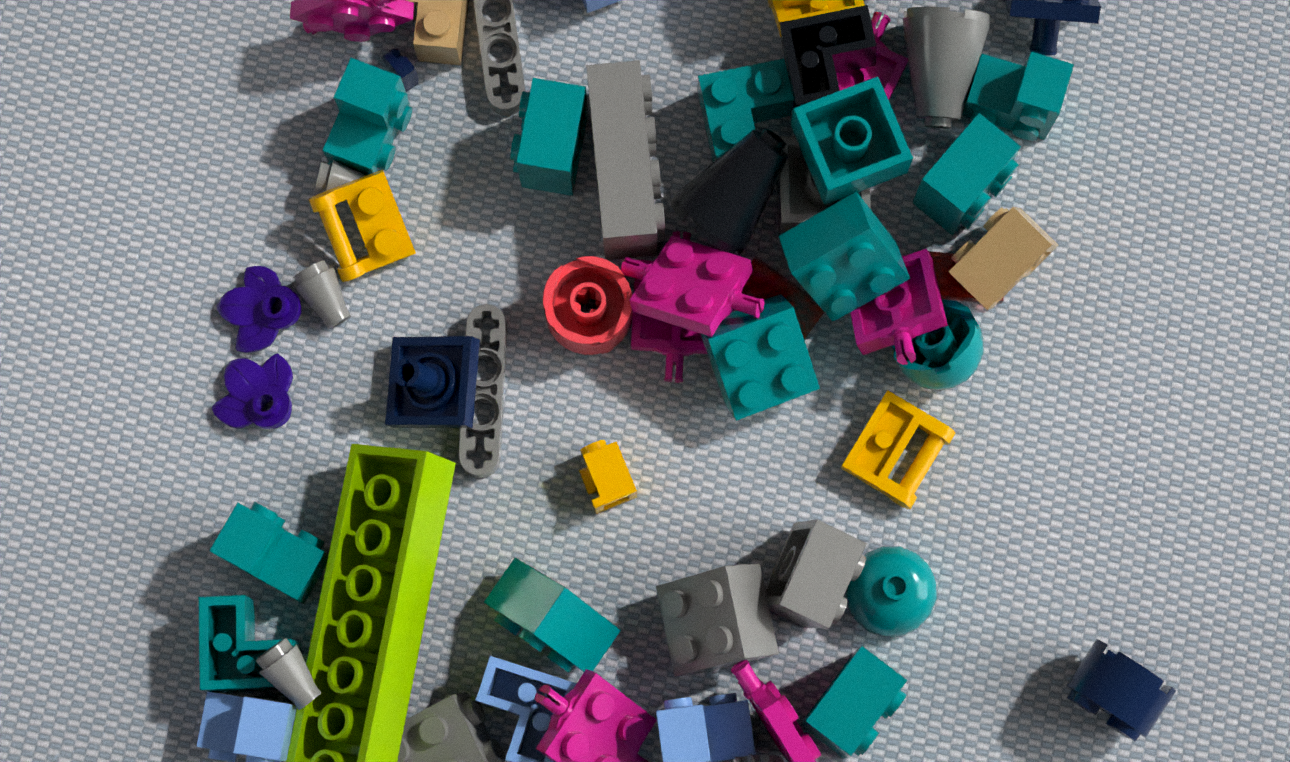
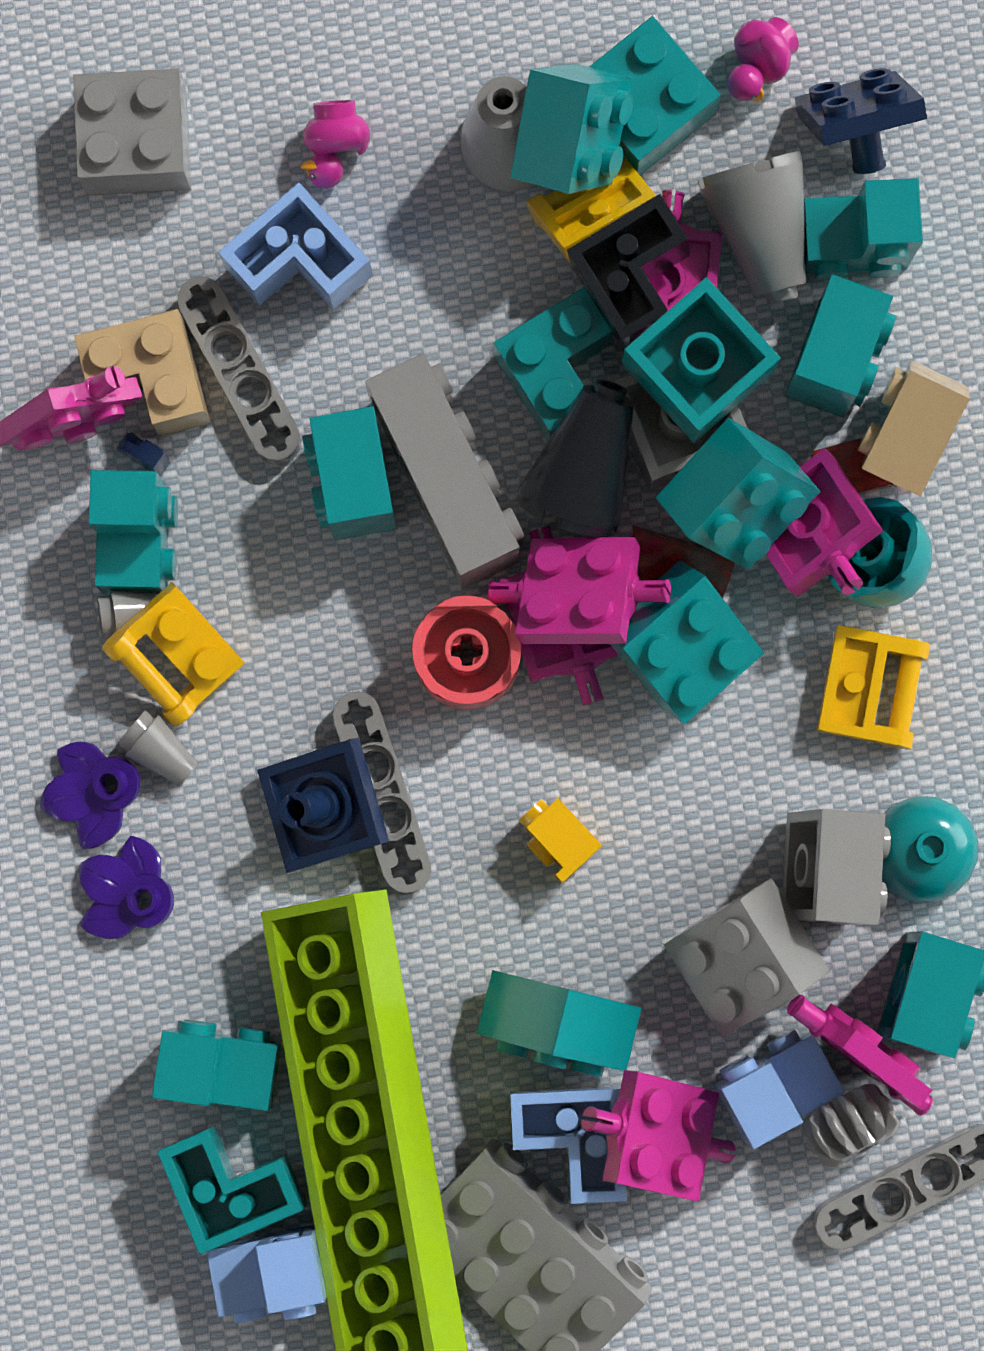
camera: 20 degrees left, 5 degrees up
(288, 672) = (293, 1199): light grey cone -> none

